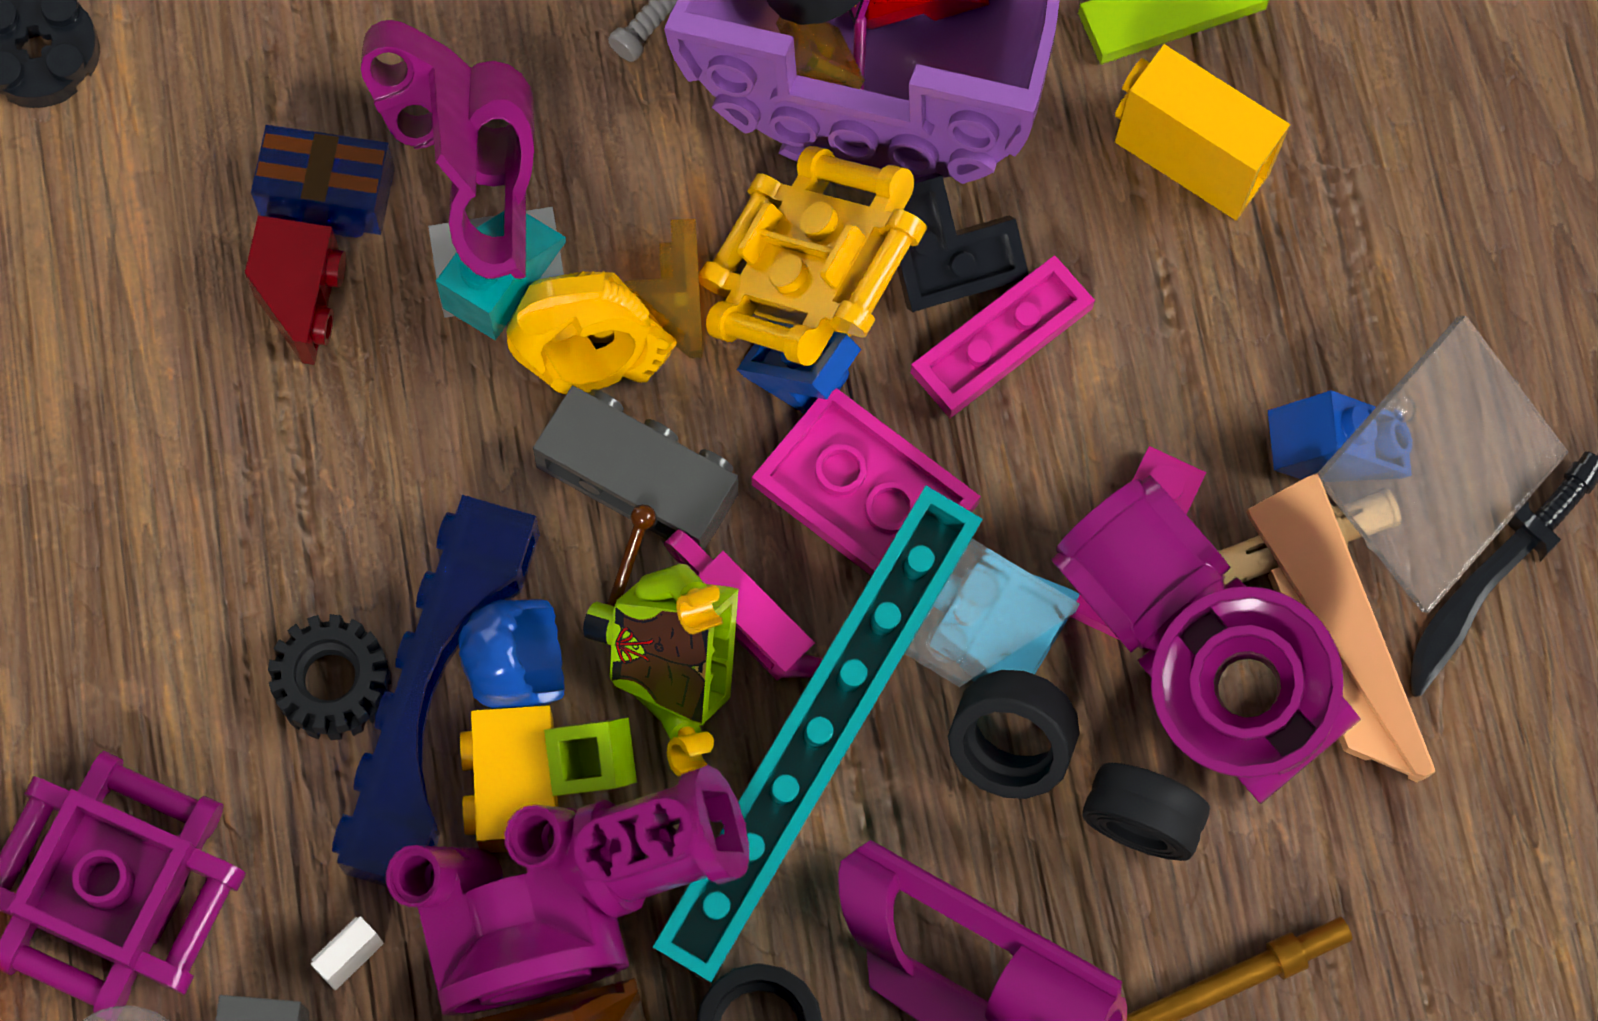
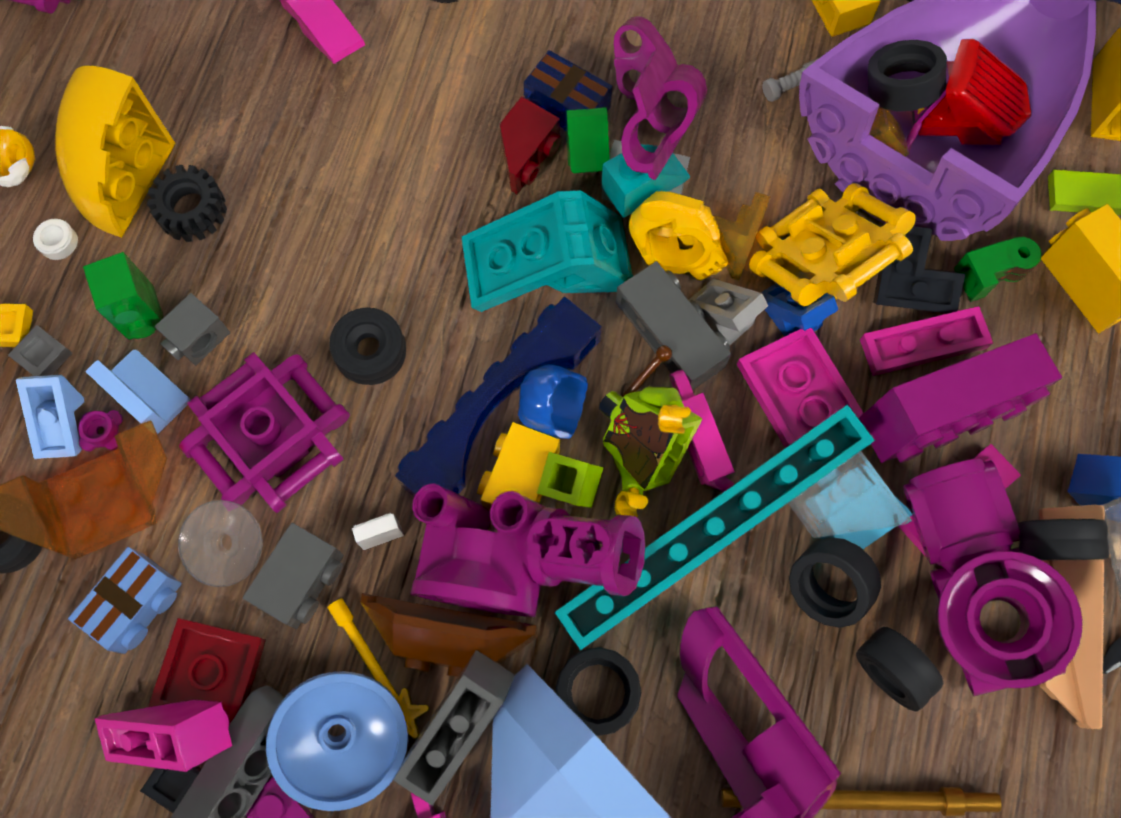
camera: 30 degrees right, 0 degrees up
(192, 657) = (360, 325): none -> black tyre
(307, 646) = (434, 347): black tyre -> none
(392, 248) = (587, 139): none -> green slope
(408, 424) = (552, 242): none -> teal bracket
(704, 408) = (729, 307): none -> light grey slope
(1065, 170) = (997, 262): none -> green leg
(1076, 407) = (960, 399): none -> magenta brick
(1282, 543) = (1064, 539): none -> black tyre

